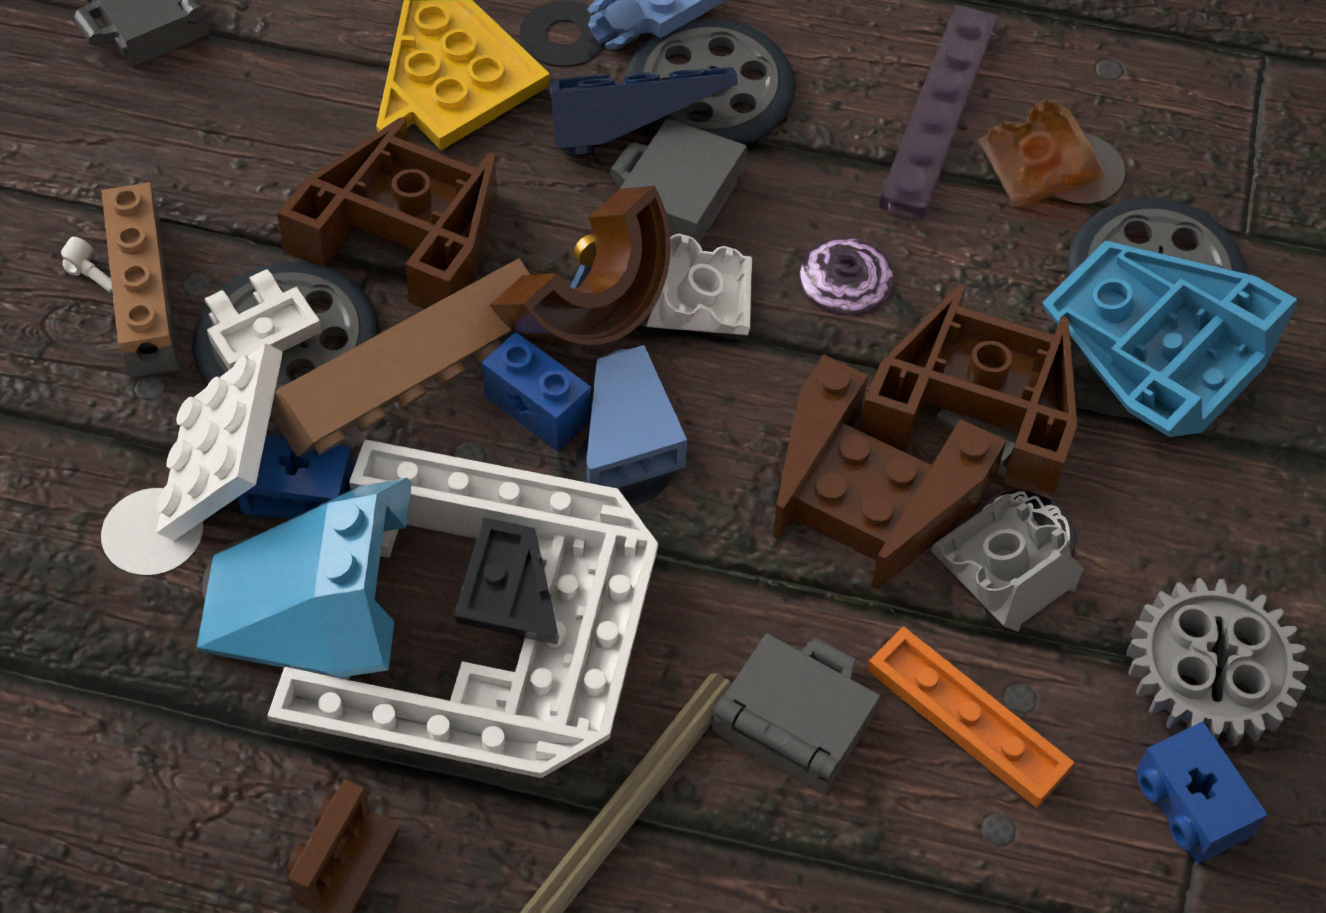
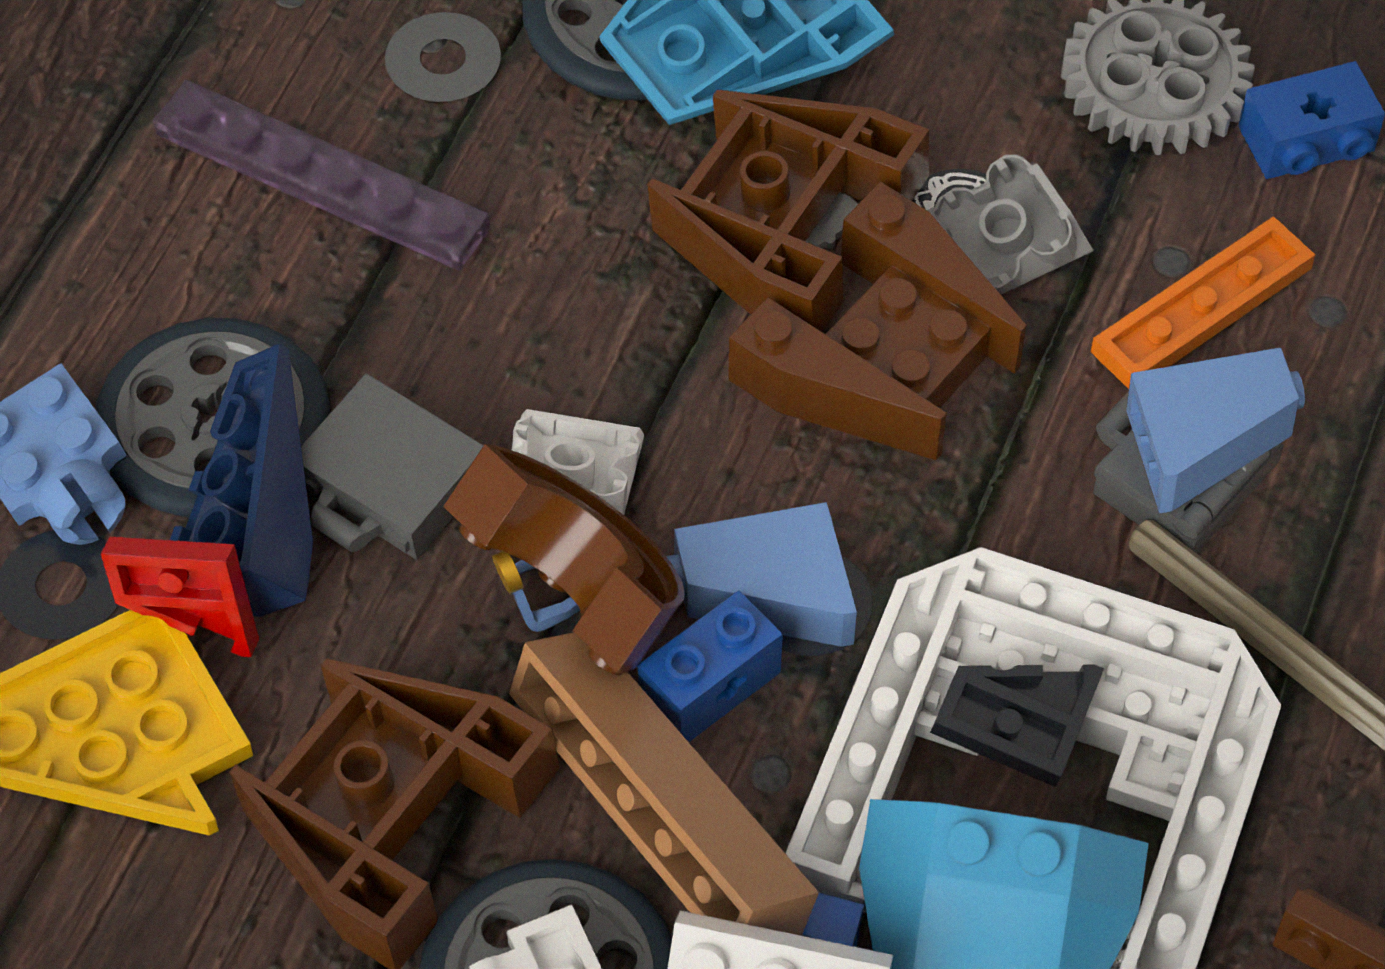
camera: 80 degrees left, 0 degrees up
(541, 70) = (183, 586): none -> red wing
(809, 698) = (1210, 419): none -> medium blue slope
(843, 289) = (569, 339): dish -> none
(1041, 154) = (432, 81): clear orange slope -> none

